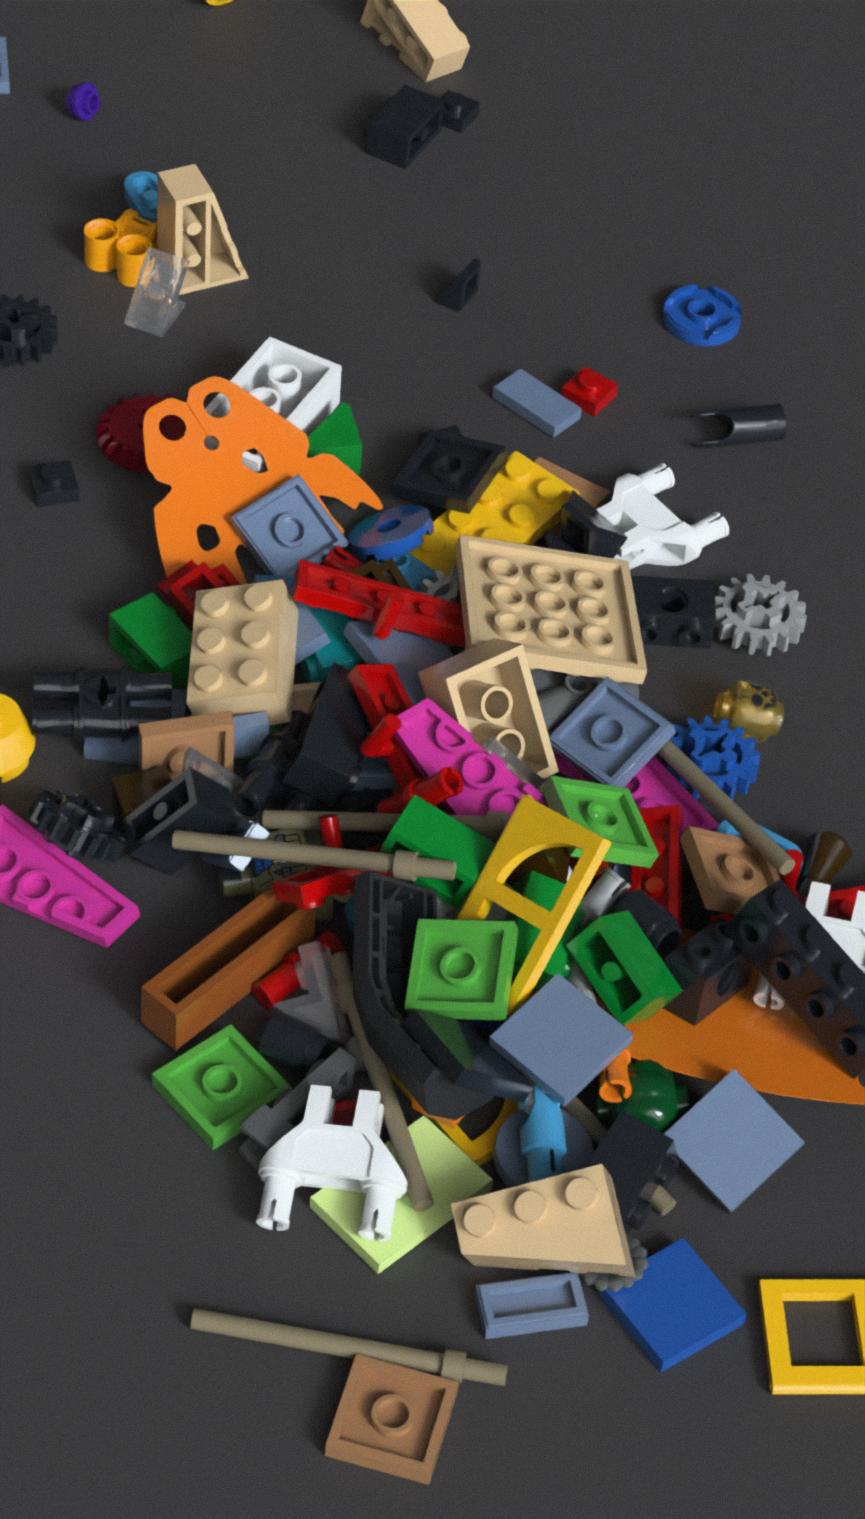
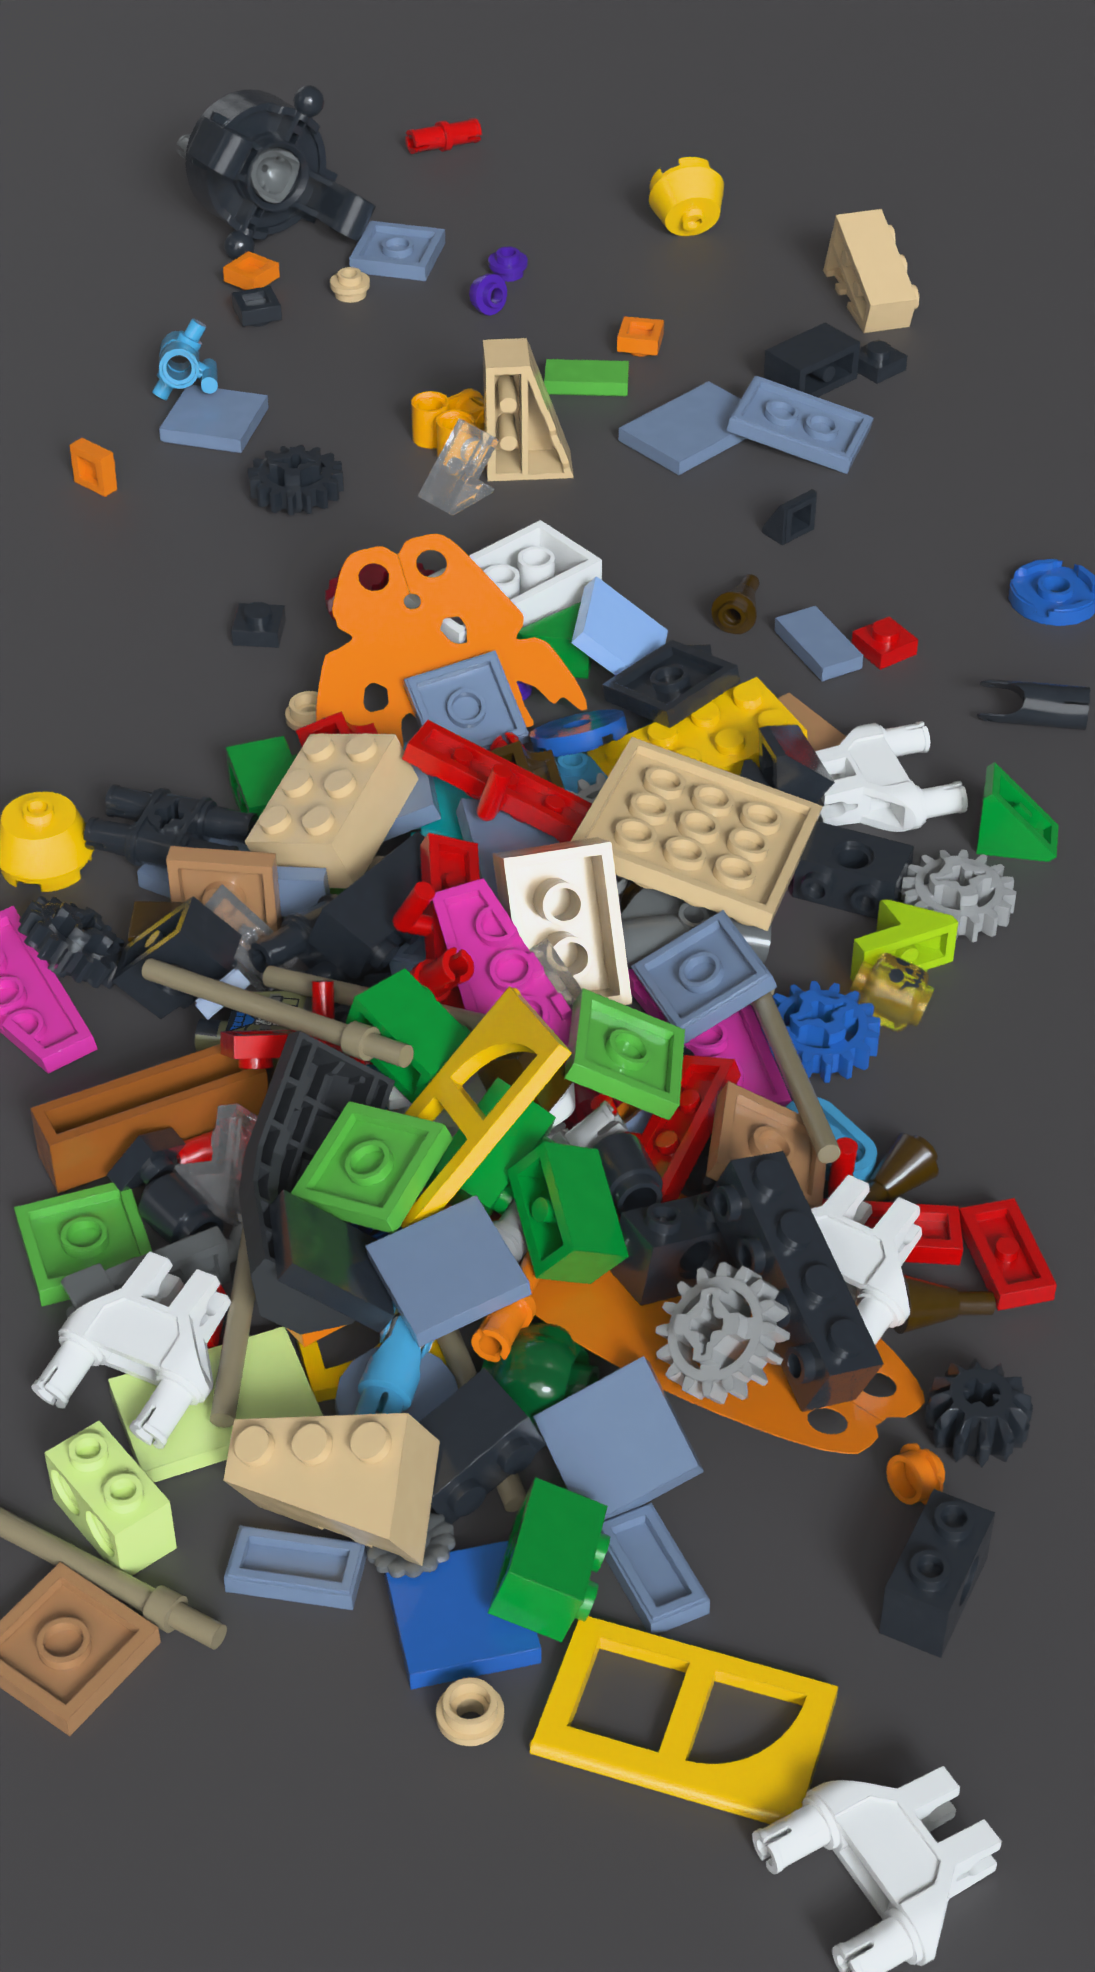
camera: 25 degrees right, 5 degrees down
(81, 64) = (508, 263): none -> dark purple plate
(145, 561) = (301, 709): none -> tan plate
(222, 170) = (586, 377): none -> bright green tile
(241, 122) = (640, 336): none -> orange plate
(248, 1006) = (146, 1159): none -> black plate
(330, 208) = (685, 429): none -> sand blue tile
(372, 1293) = (111, 1499): none -> yellowish green brick
(377, 429) = (614, 628): none -> light blue tile
(423, 190) = (800, 424): none -> sand blue tile
(457, 384) = (736, 608): none -> dark brown cone
(719, 1364) = (470, 1696): none -> tan plate
(726, 1245) = (550, 1561): none -> green brick
(736, 659) = (910, 933): none -> lime slope
(768, 539) = (1013, 822): none -> green slope
(768, 1037) = (723, 1334): none -> light grey gear
(790, 1230) = (653, 1571): none -> sand blue tile

